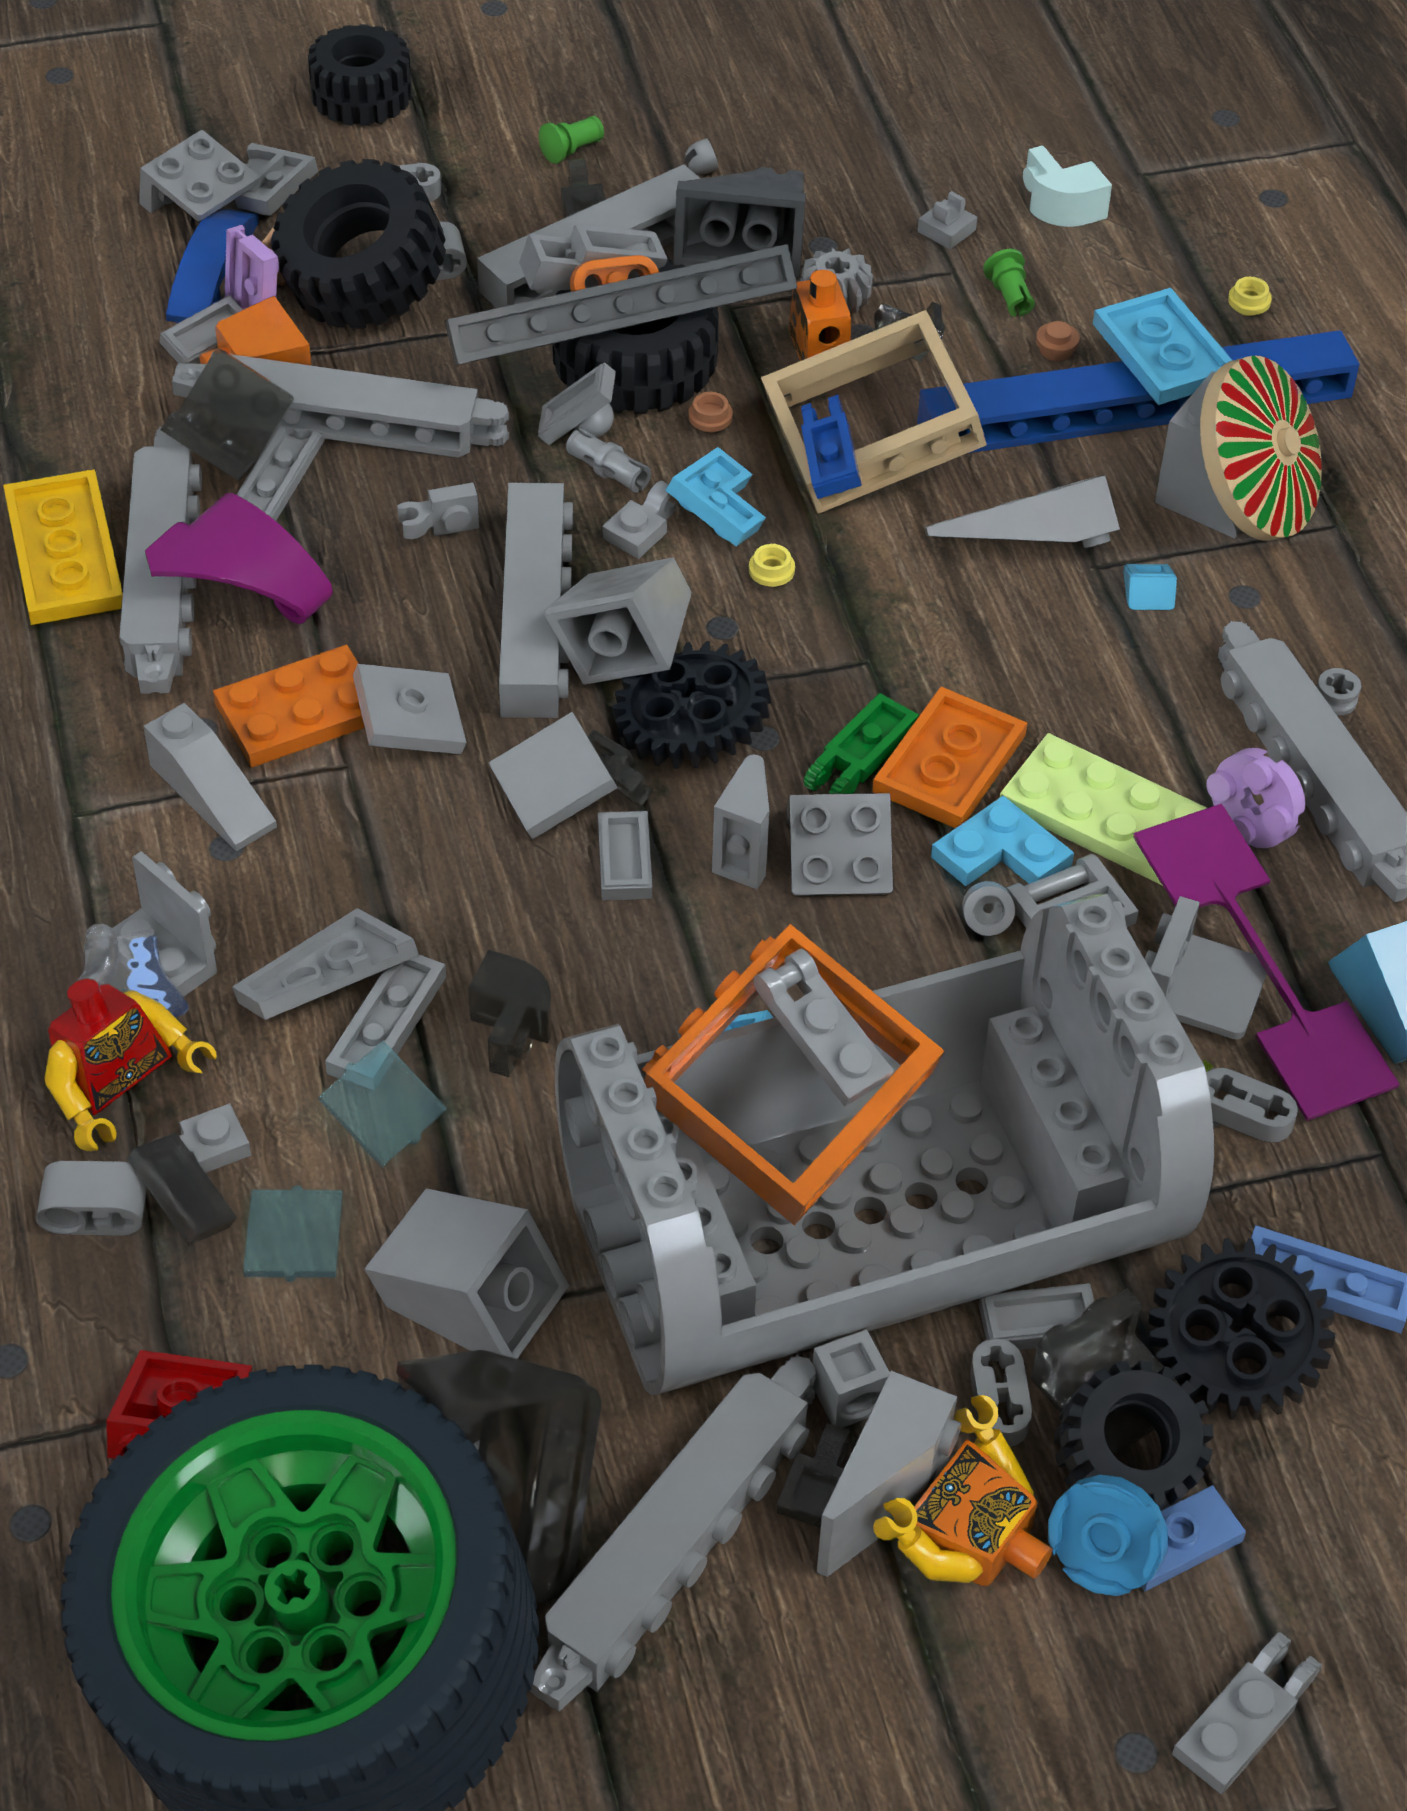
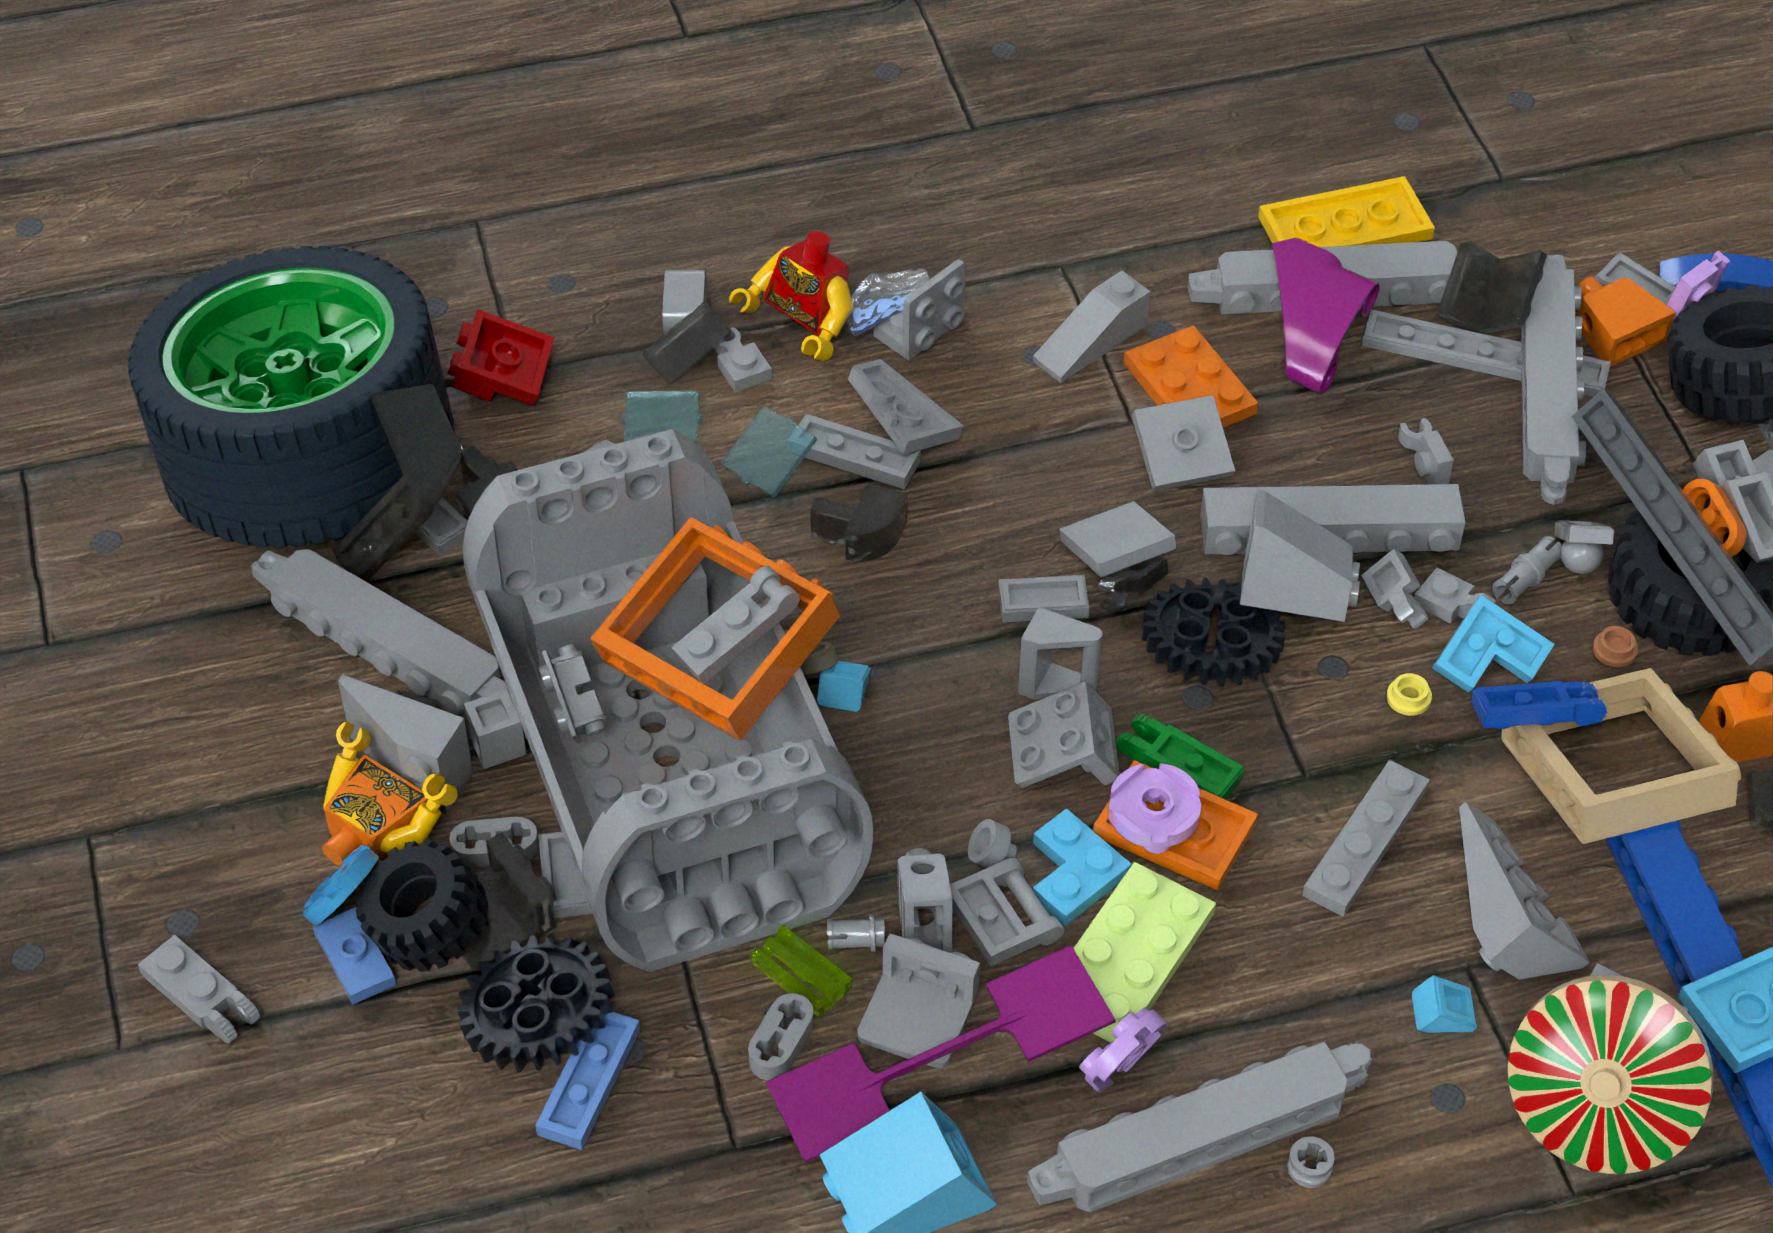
camera: 90 degrees right, 0 degrees up
(631, 551) = (1391, 586): none -> light grey plate
(826, 1266) = (576, 710): none -> light grey hinge
(942, 777) = (1155, 828): none -> lavender plate
(951, 618) = (1366, 838): none -> light grey plate

